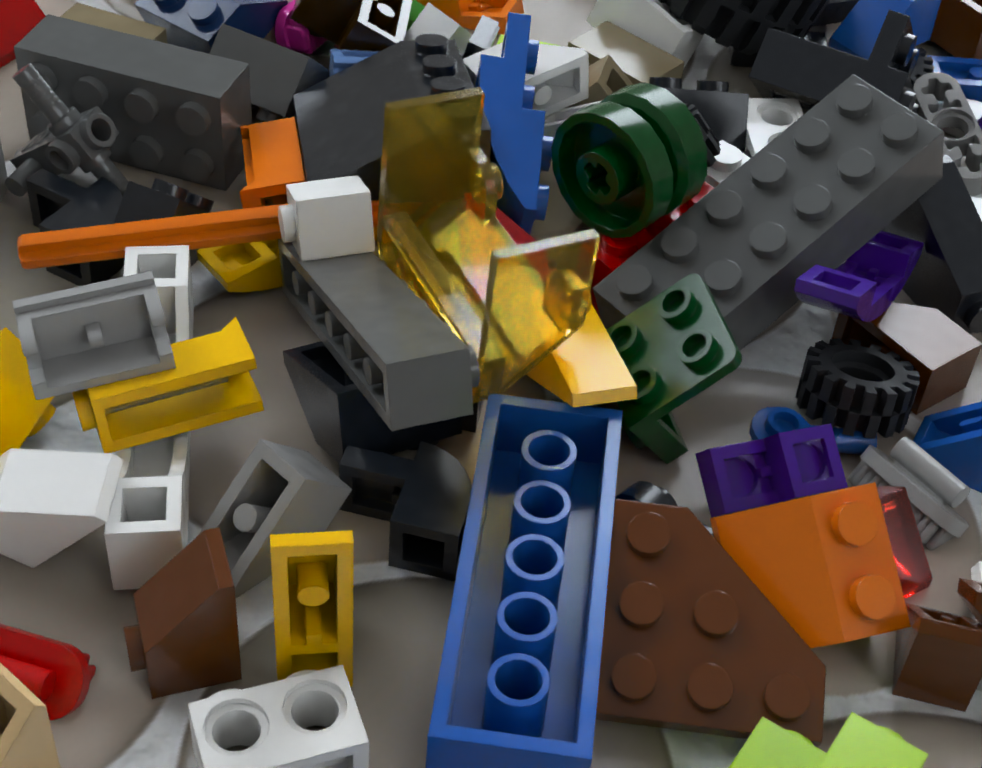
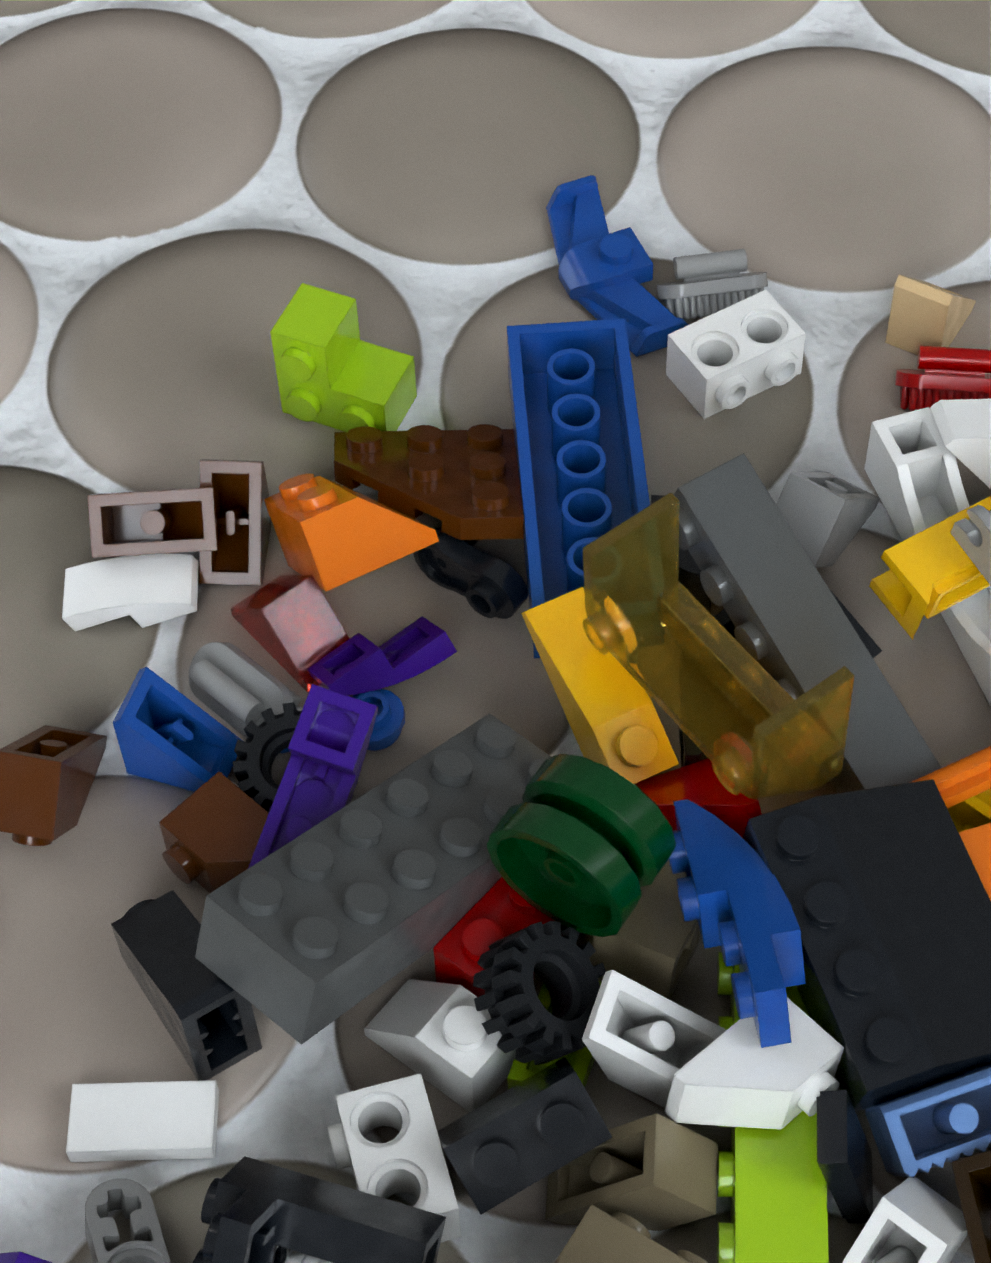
camera: 175 degrees right, 10 degrees up
(187, 621) = (833, 401): reddish brown slope -> none
(313, 601) = (746, 389): yellow slope -> none
(328, 218) = (898, 745): white brick -> none
(673, 353) = (502, 687): dark green bracket -> none

